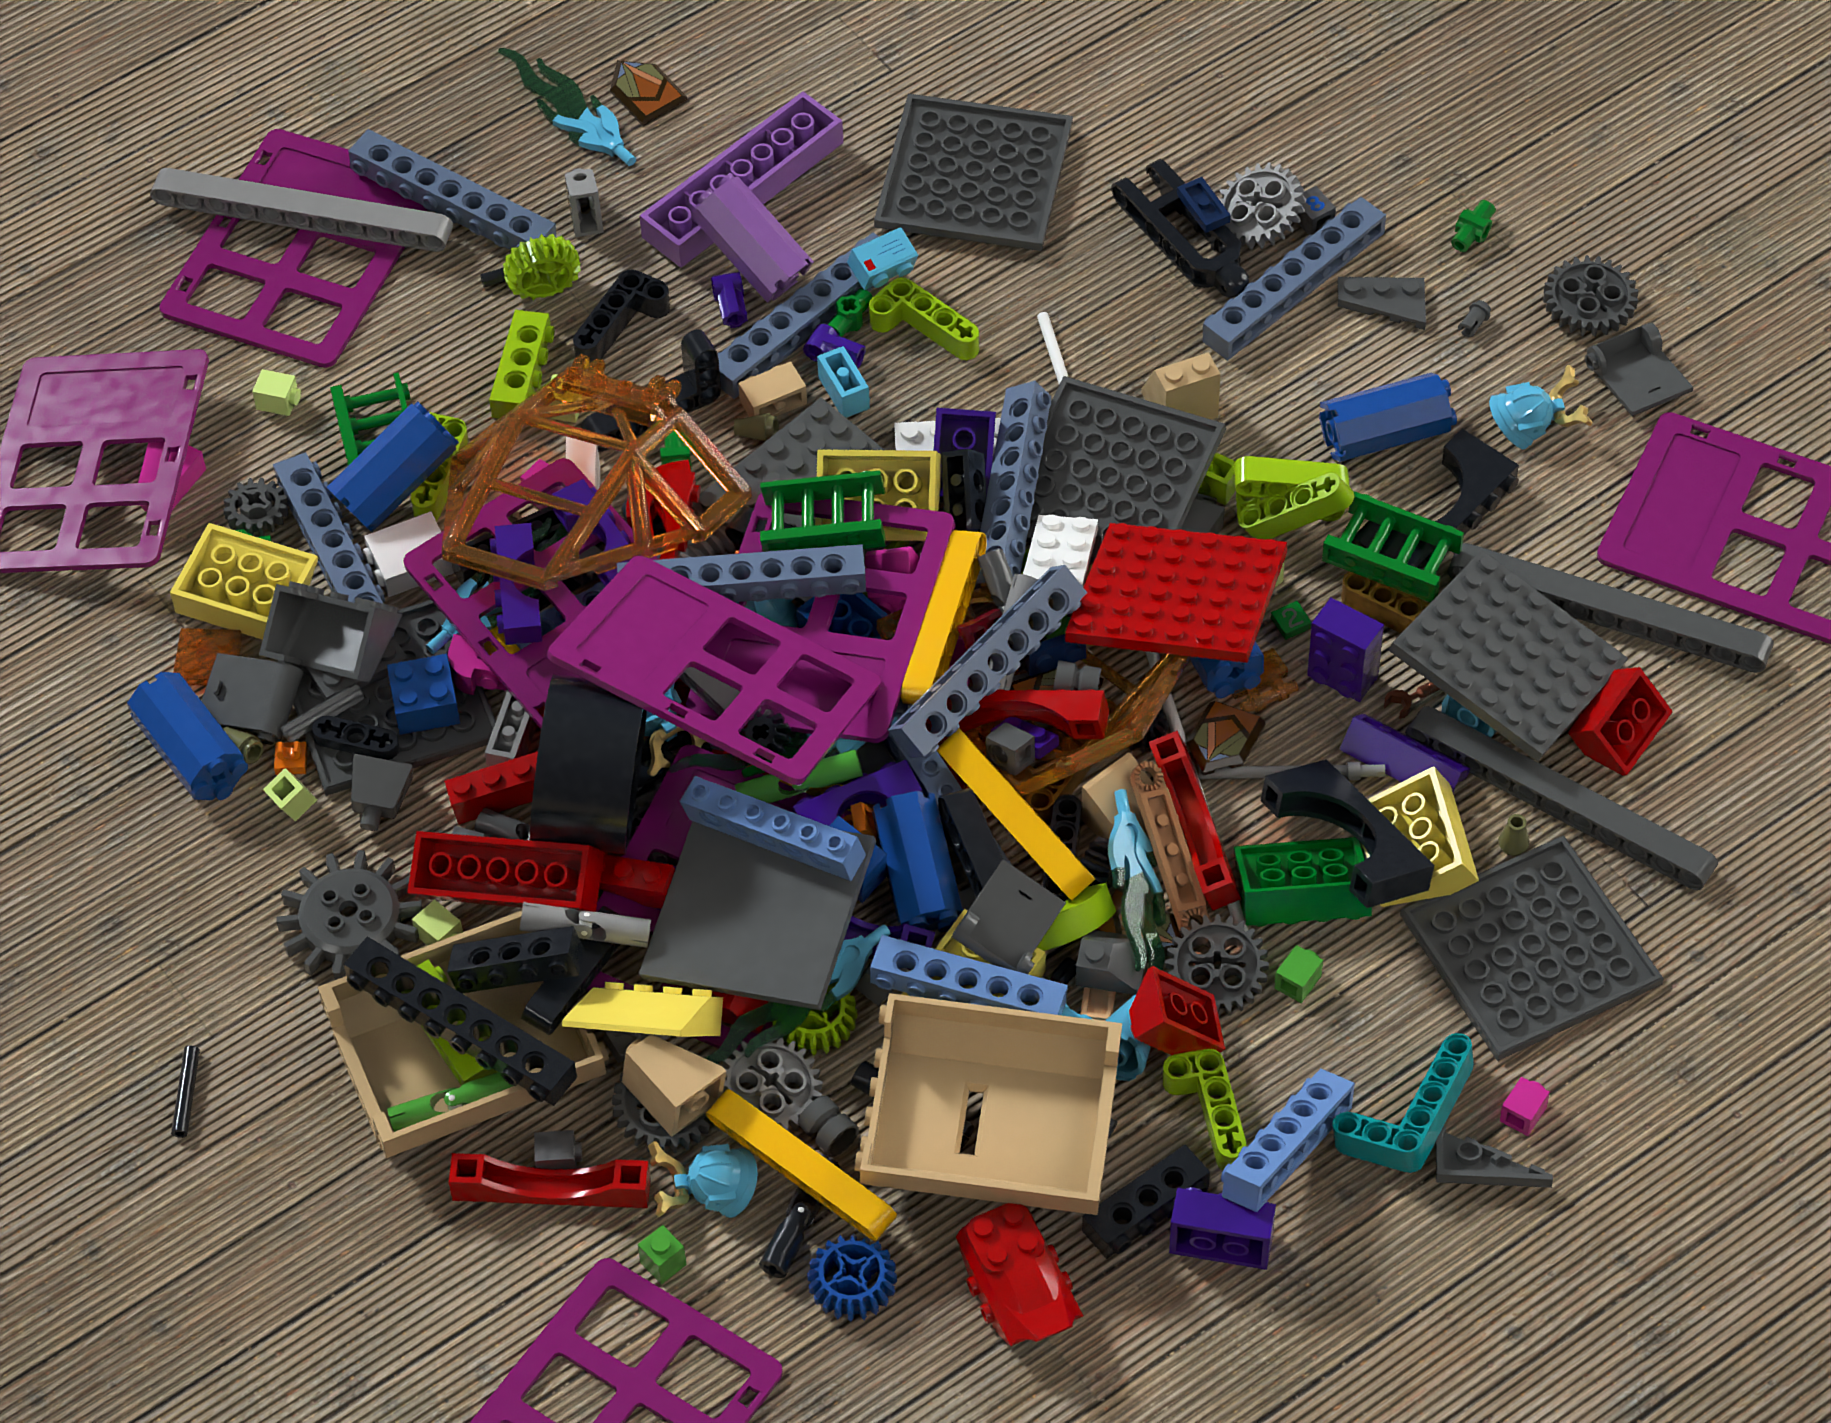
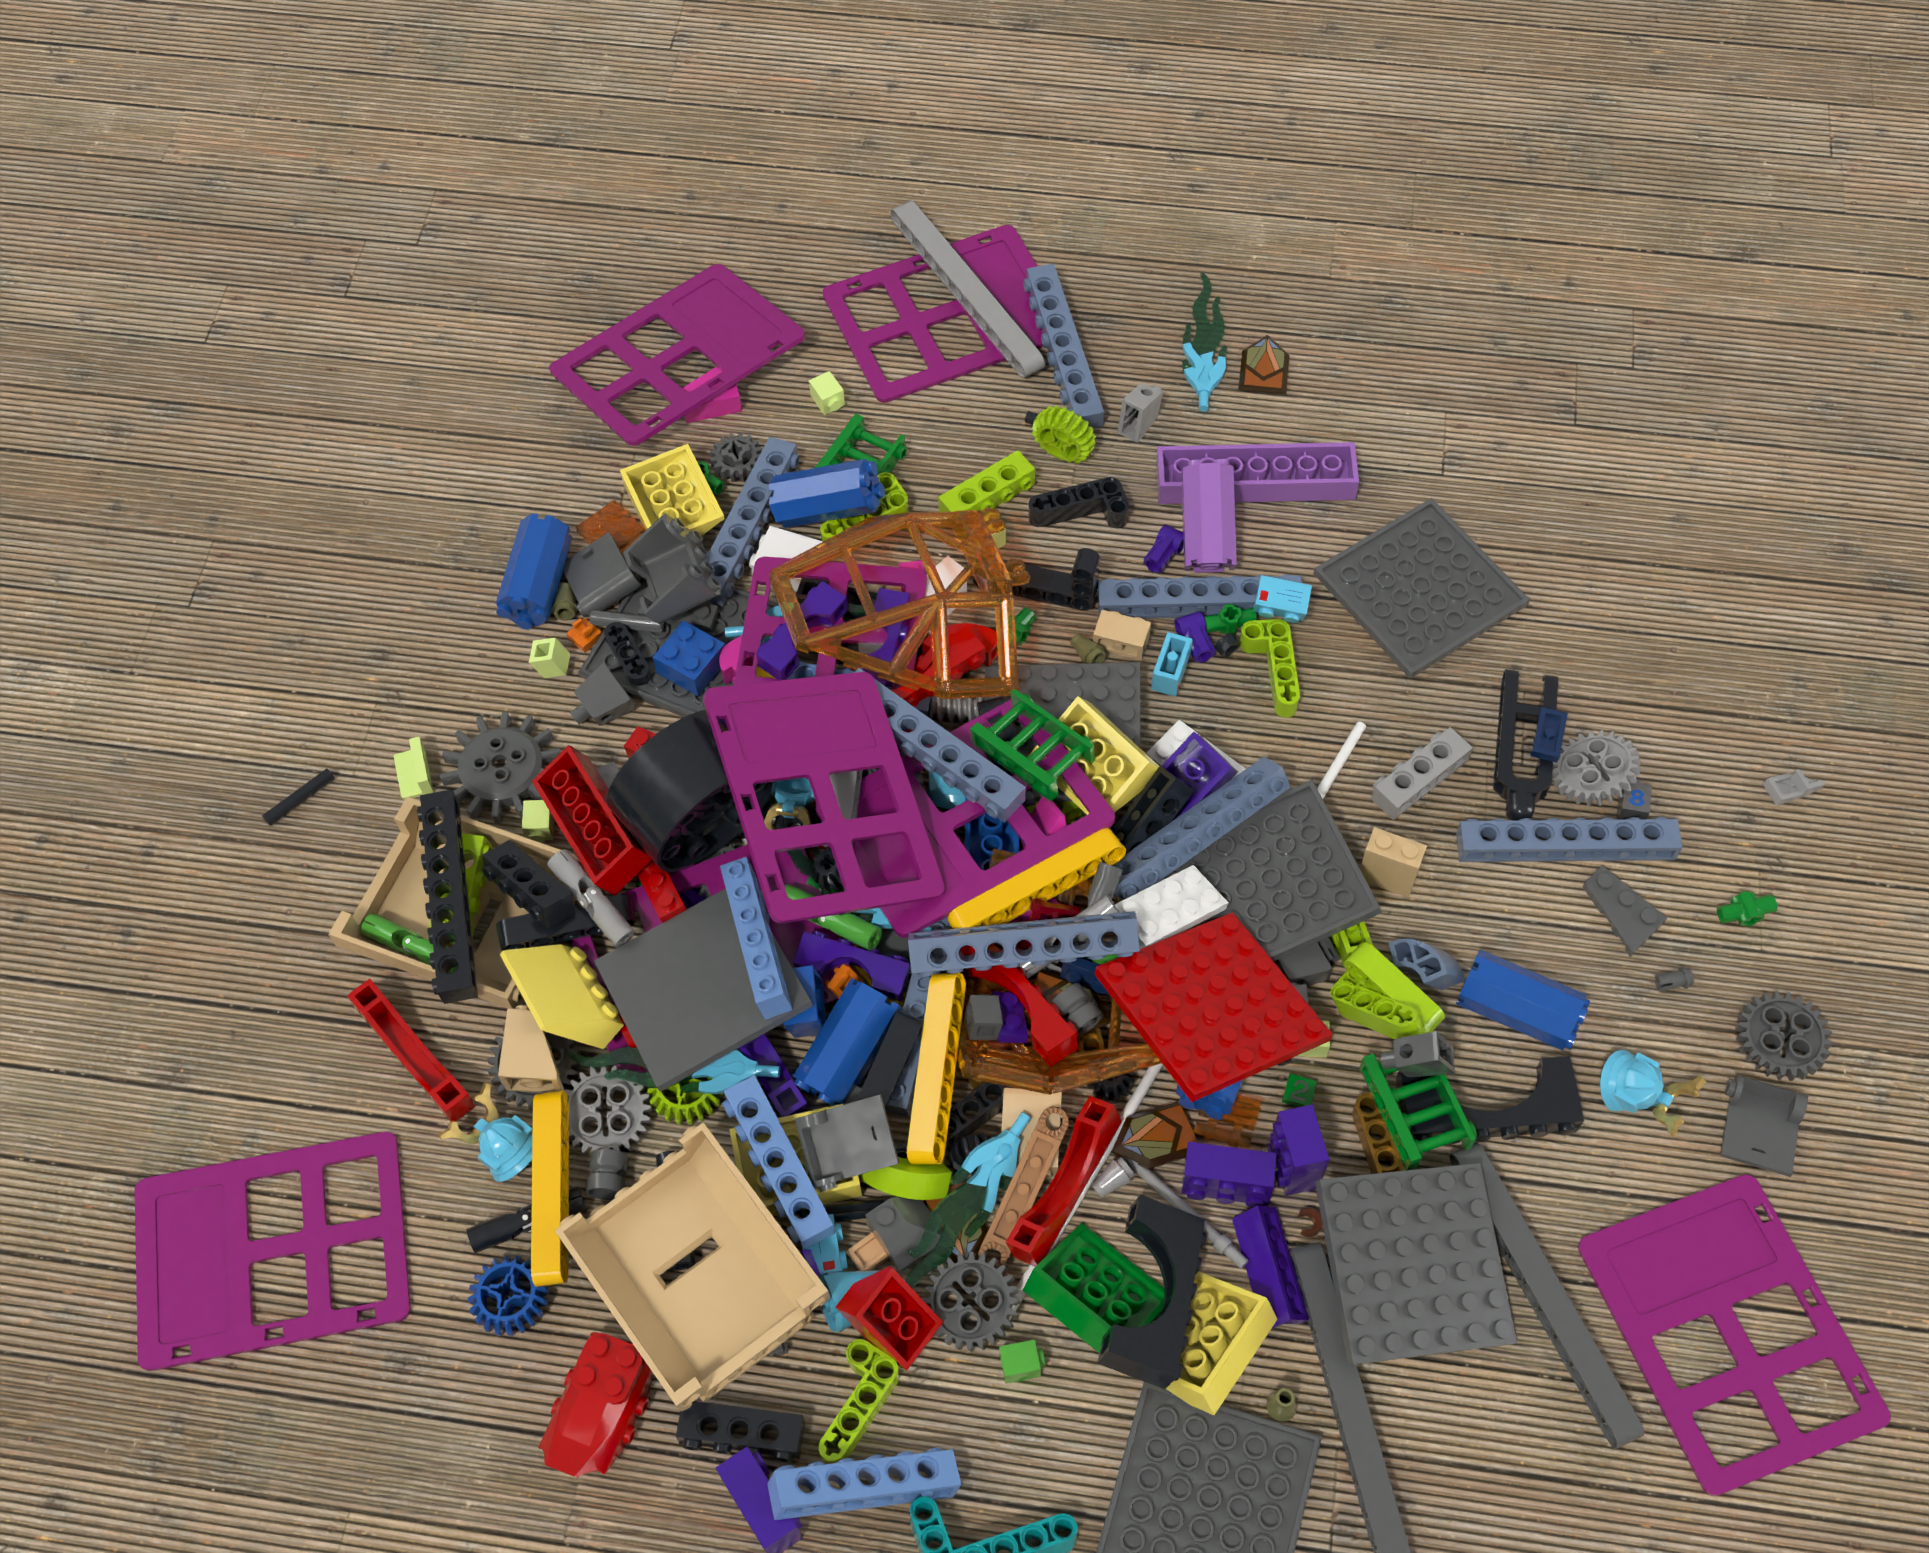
camera: 45 degrees right, 5 degrees up
(270, 983) = (413, 771): none -> yellowish green panel
(557, 1150) = (438, 1034): flat silver brick -> none
(662, 1254) = (419, 1165): bright green brick -> none
(869, 334) = (1227, 645): none -> black axle
(1131, 314) = (1397, 800): none -> light grey brick
(1223, 792) = (1113, 1177): none -> light grey cone
(1292, 442) = (1433, 964): none -> sand blue brick
(1308, 713) = (1228, 1174): none -> dark purple brick
(1373, 495) = (1420, 1055): none -> dark grey torso
(1412, 112) = (1791, 787): none -> light grey slope
(1621, 720) = (1458, 1388): red slope -> none

